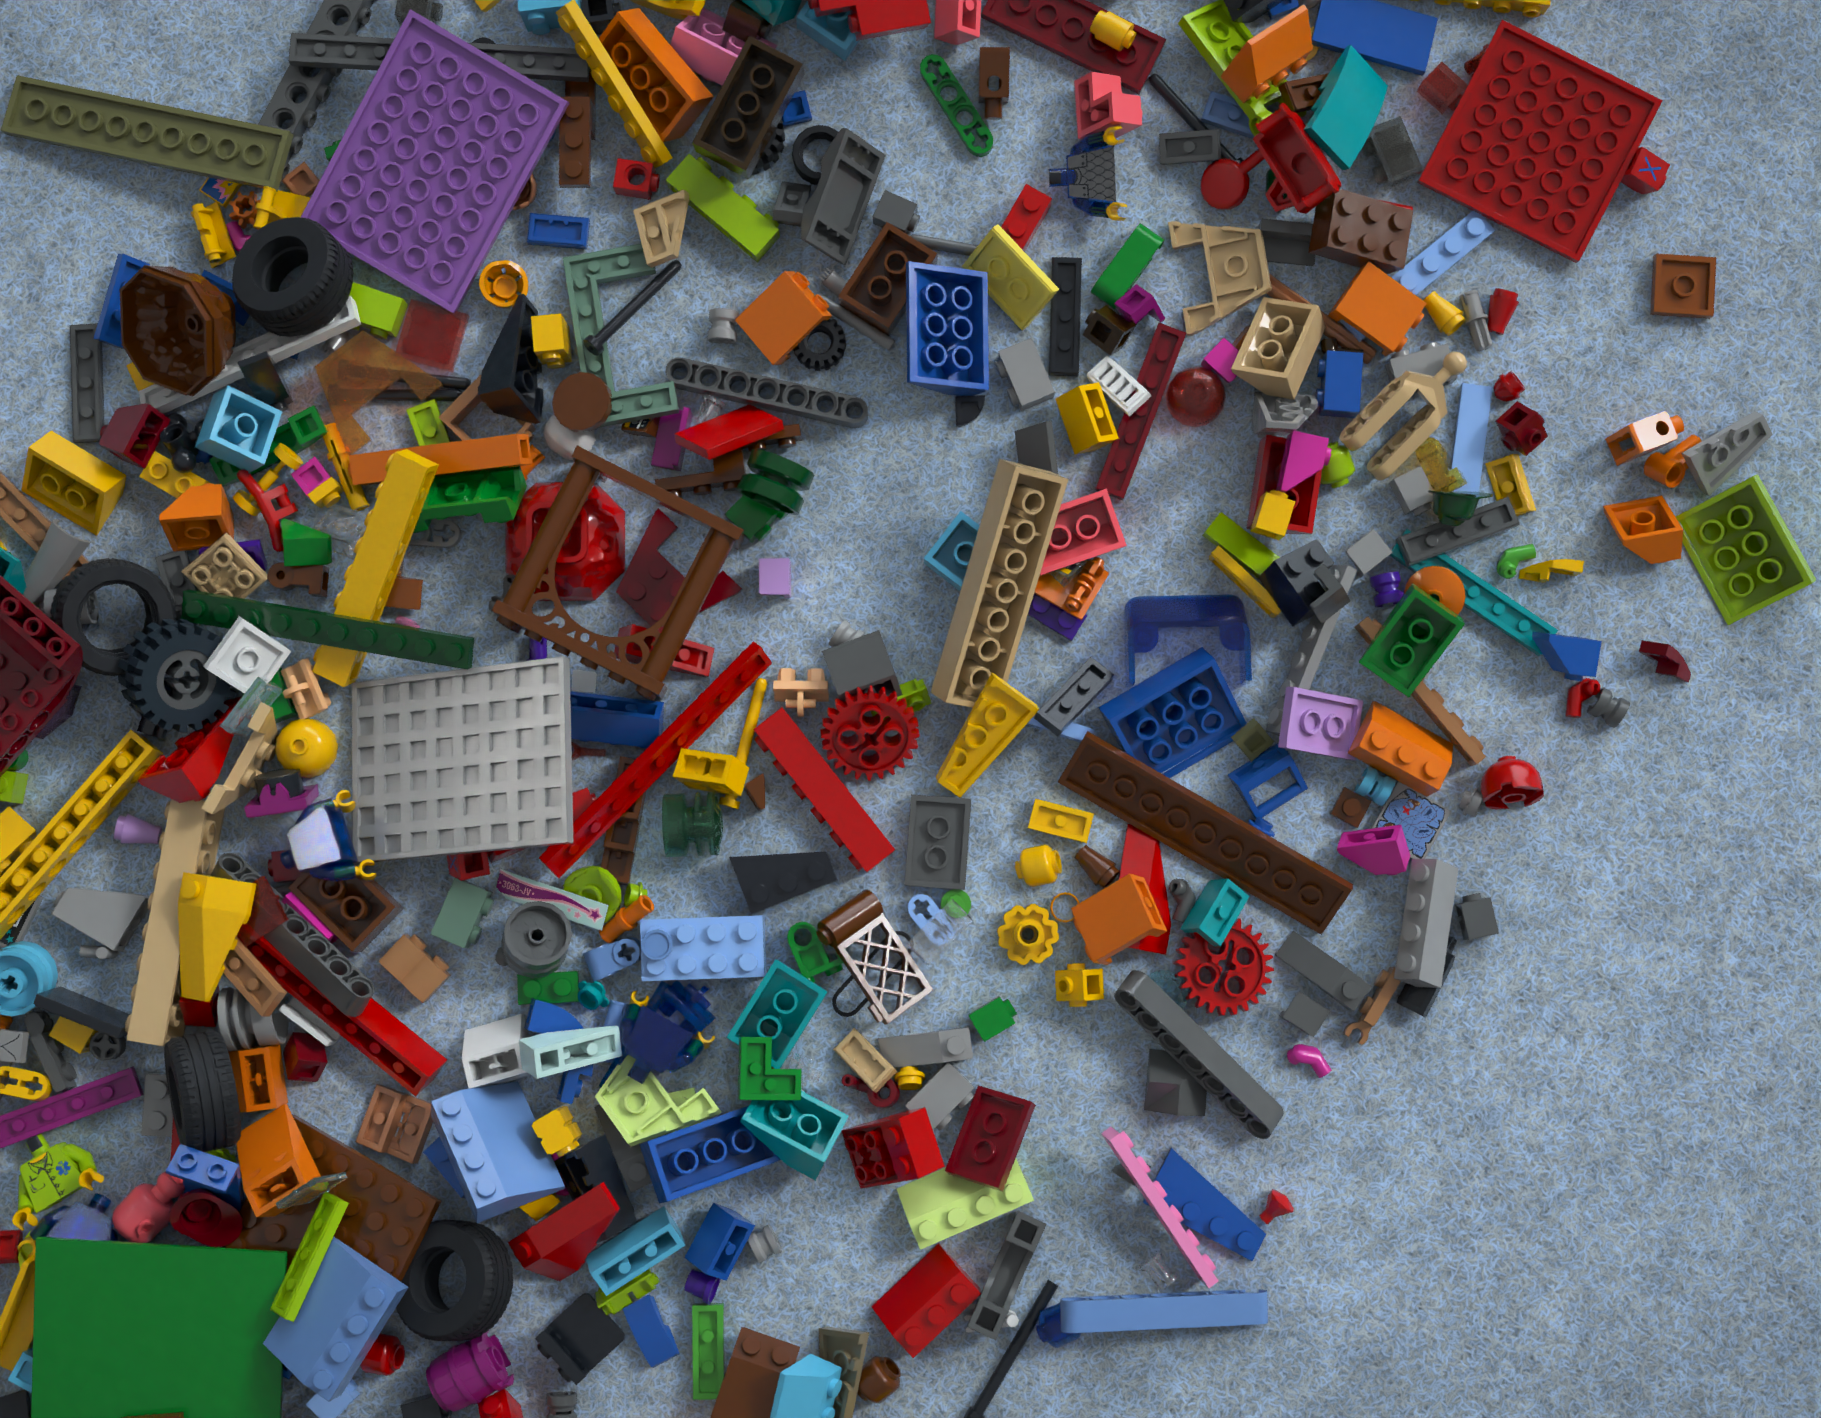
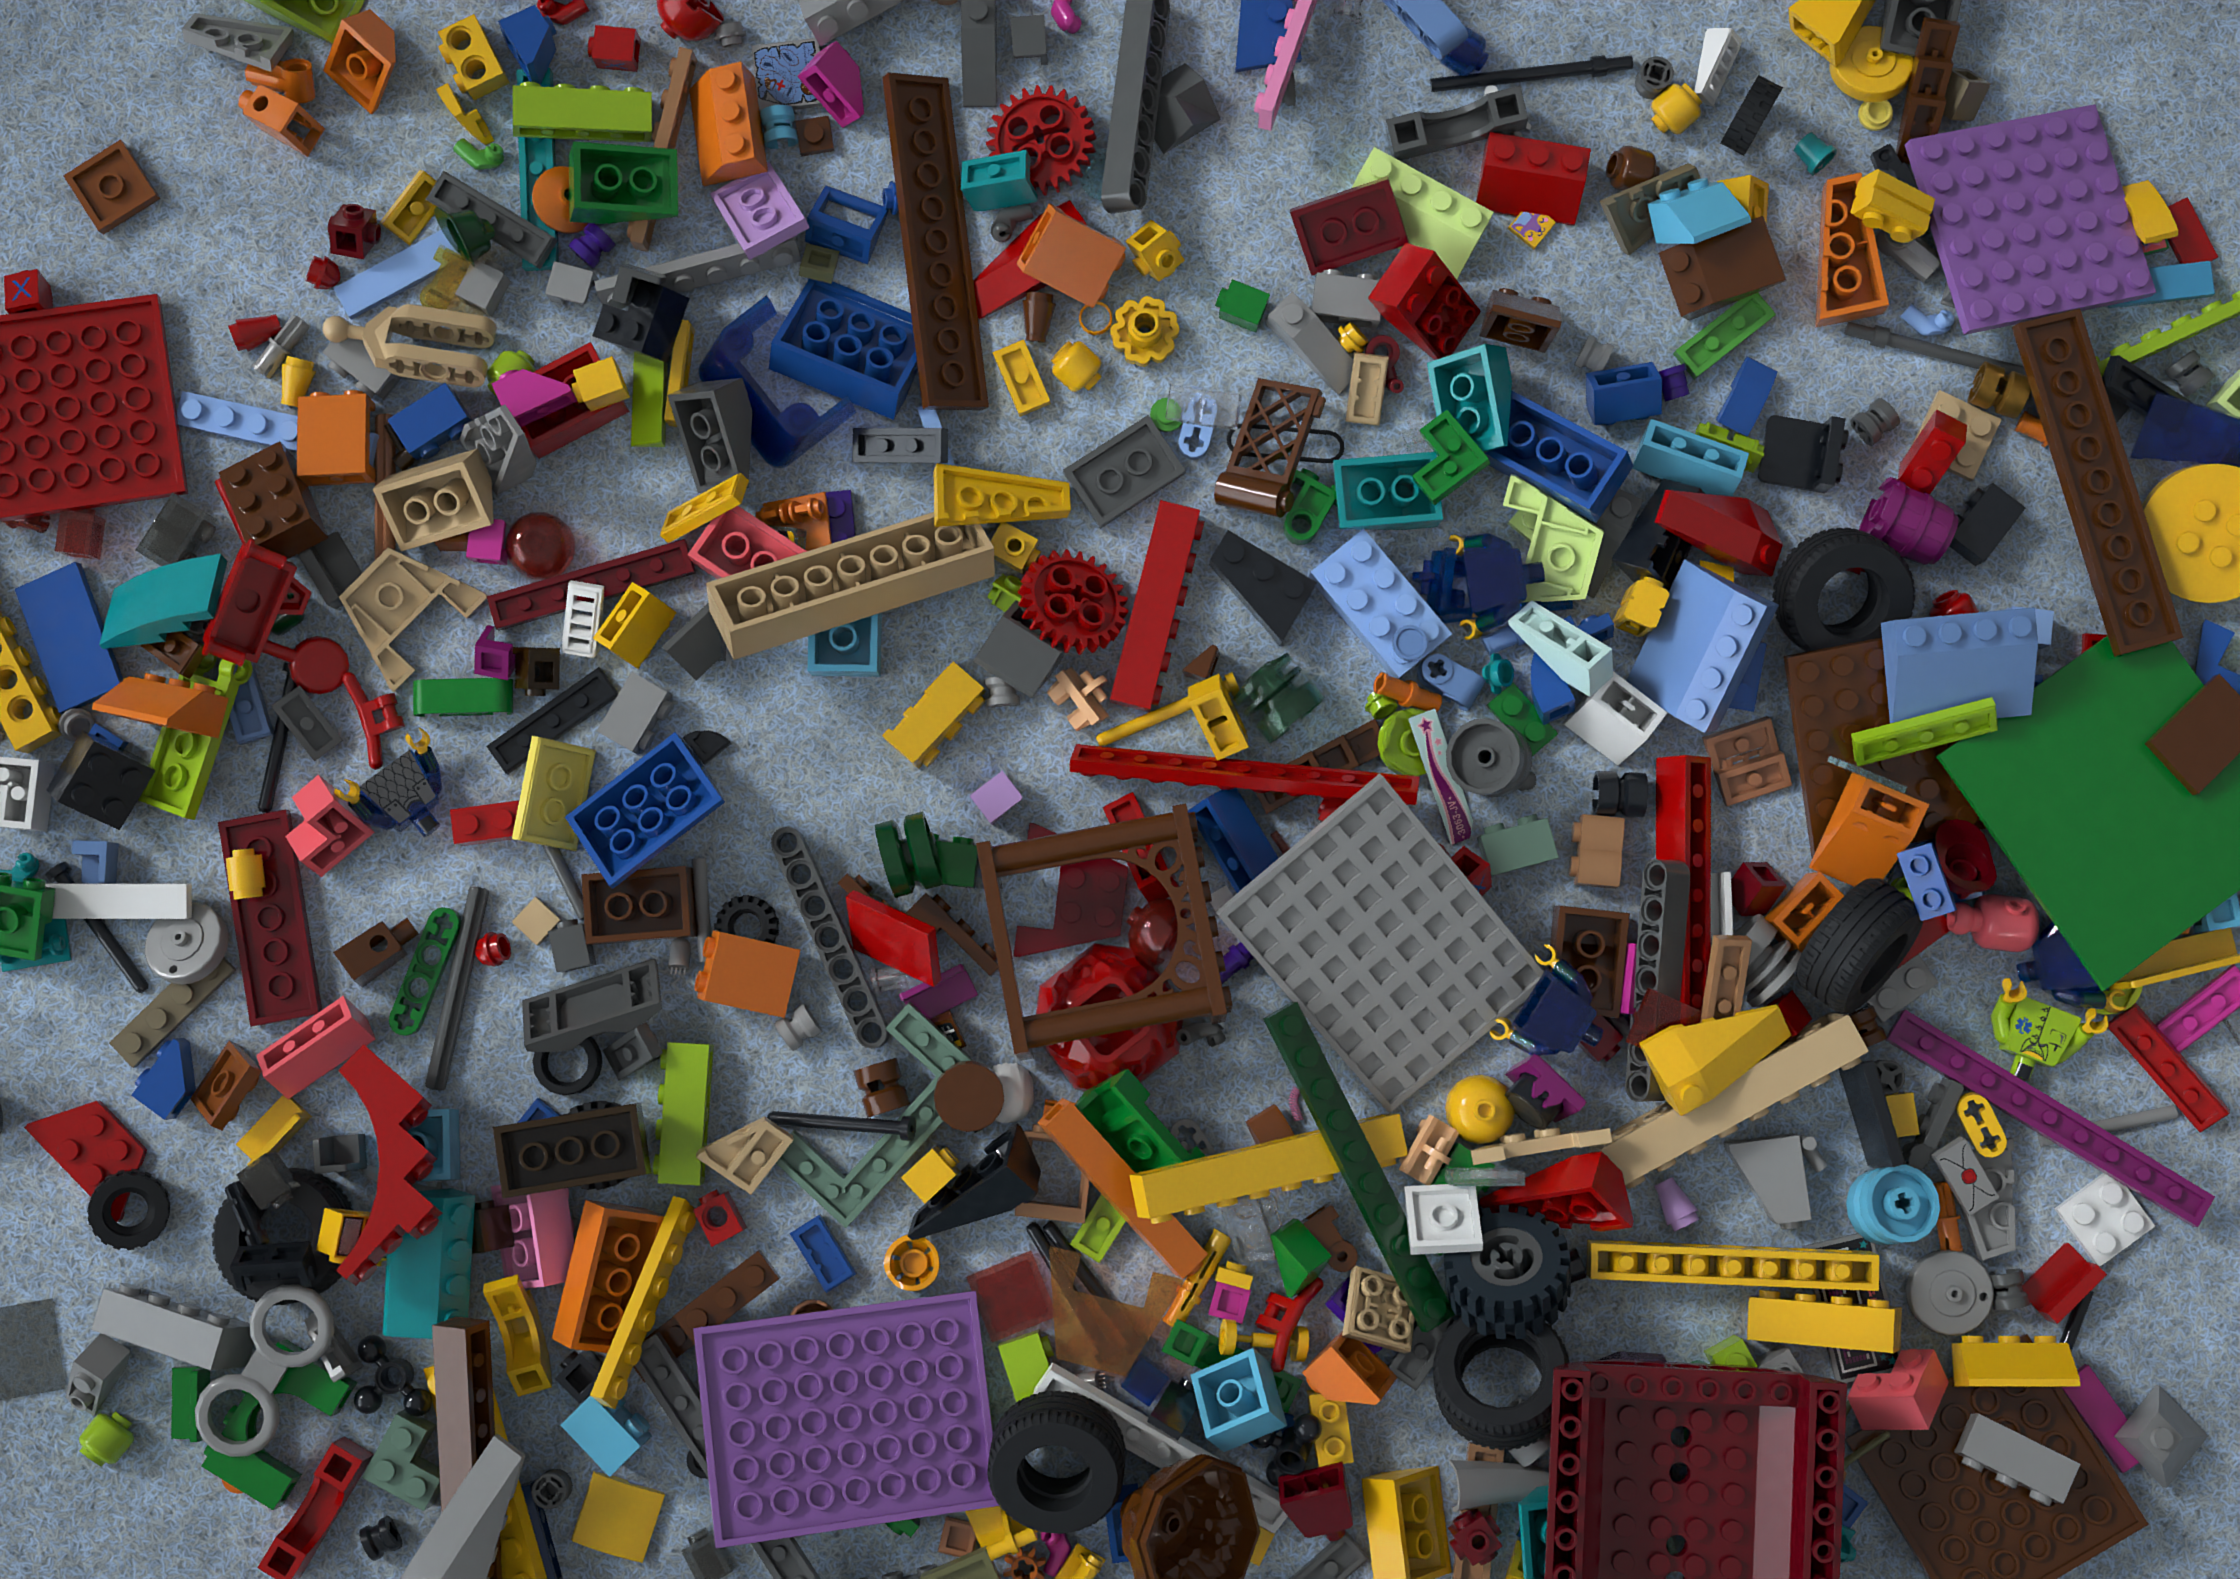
camera: 130 degrees left, 0 degrees up
(26, 519) = (1468, 1526): none -> dark red brick
(149, 1057) = (1865, 1019): none -> reddish brown wheel
(303, 381) = (1144, 1379): none -> clear blue panel
(441, 1014) = (1623, 794): none -> black wheel
(598, 613) = (1153, 930): none -> clear red cylinder
(627, 349) = (884, 1100): none -> reddish brown wheel
(828, 1210) = (1520, 320): none -> reddish brown slope
(863, 577) = (936, 716): none -> yellow wedge
(892, 1273) = (1531, 228): none -> tile
(928, 118) = (457, 988): none -> dark grey axle
(933, 204) = (536, 921): none -> tan tile
(935, 161) = (493, 949): none -> red plate
(941, 722) = (1014, 547): none -> yellow brick
(1131, 525) = (704, 507): none -> yellow tile
(1154, 189) = (365, 711): none -> red piece
(1181, 574) = (714, 429): none -> dark grey slope
(1488, 651) = (582, 113): none -> lime brick
(1521, 711) = (615, 48): none -> red brick
(1589, 611) = (475, 57): none -> yellow brick

